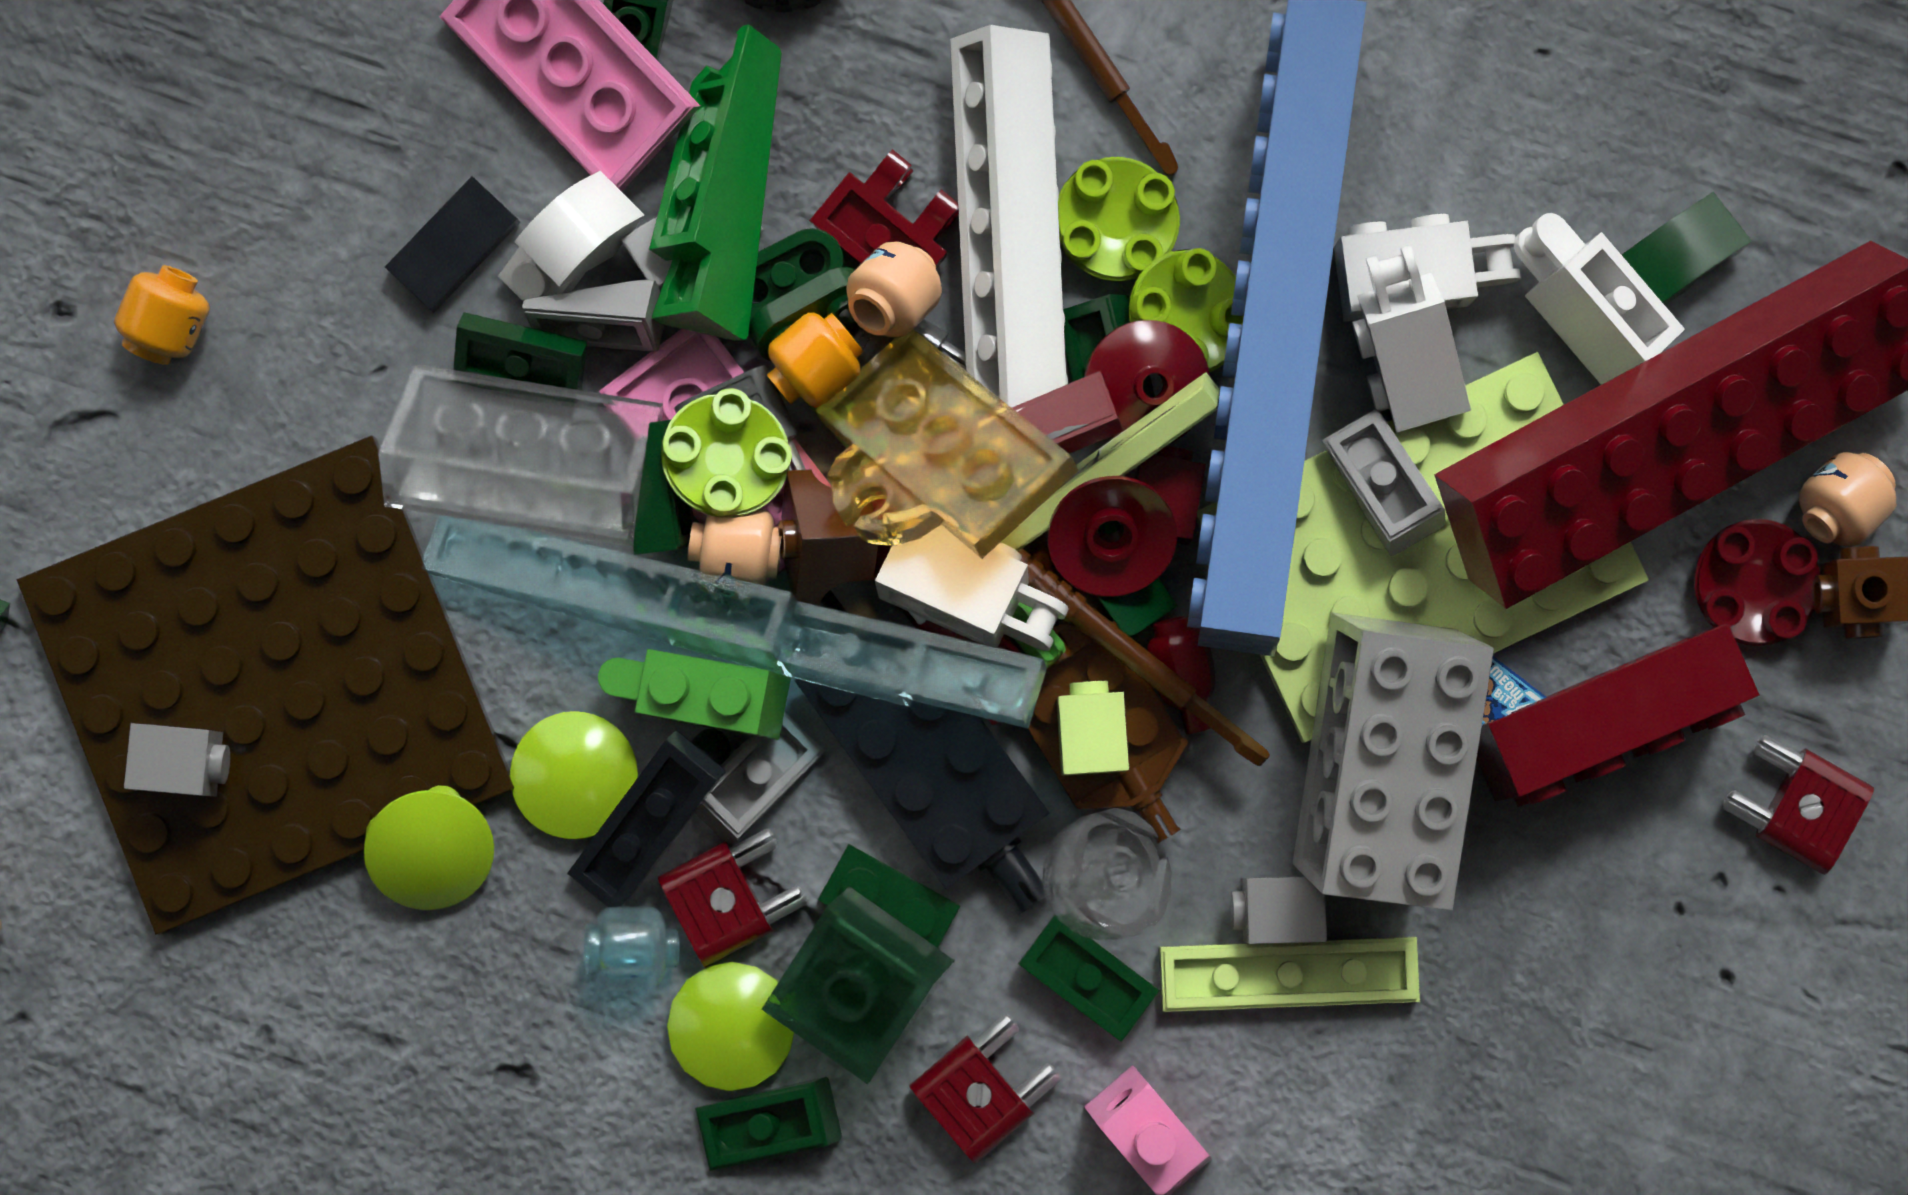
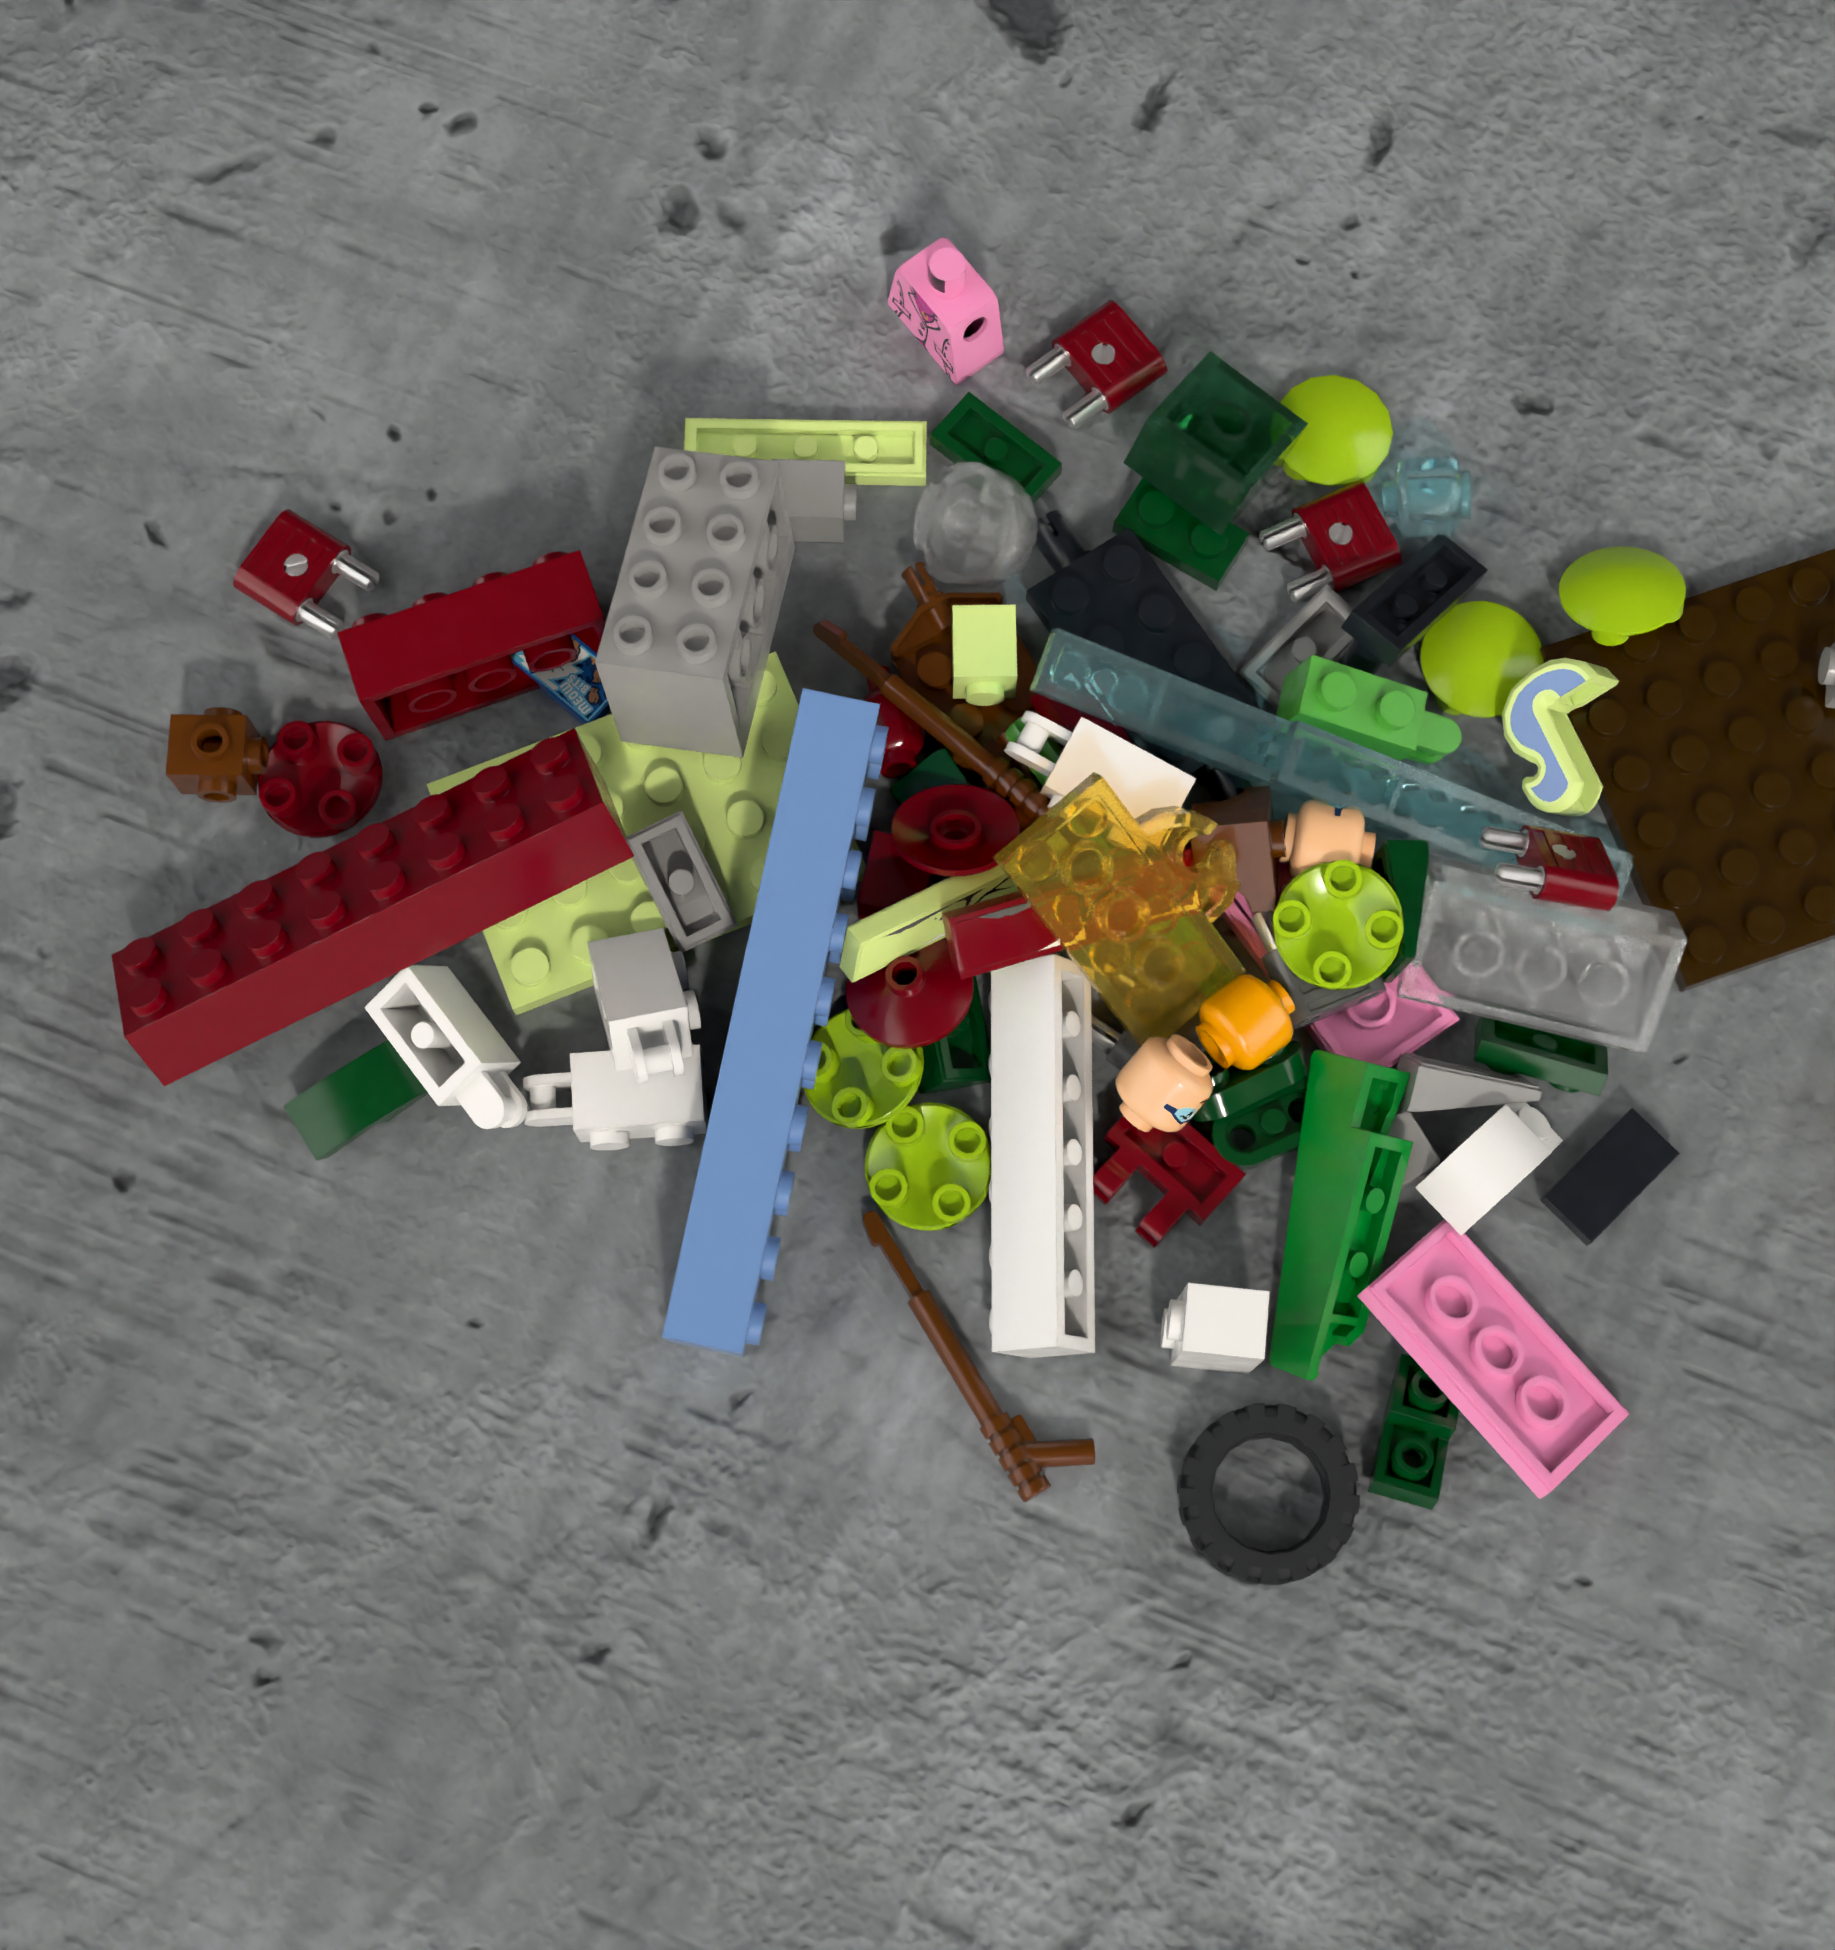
camera: 175 degrees left, 10 degrees down
(500, 529) = (1555, 866): none -> dark red piece
(508, 678) = (1543, 734): none -> yellowish green animal
(769, 1123) = (1296, 346): dark green slope -> none
(837, 60) = (1216, 1328): none -> white brick
(1848, 499) = (221, 847): light nougat head -> none

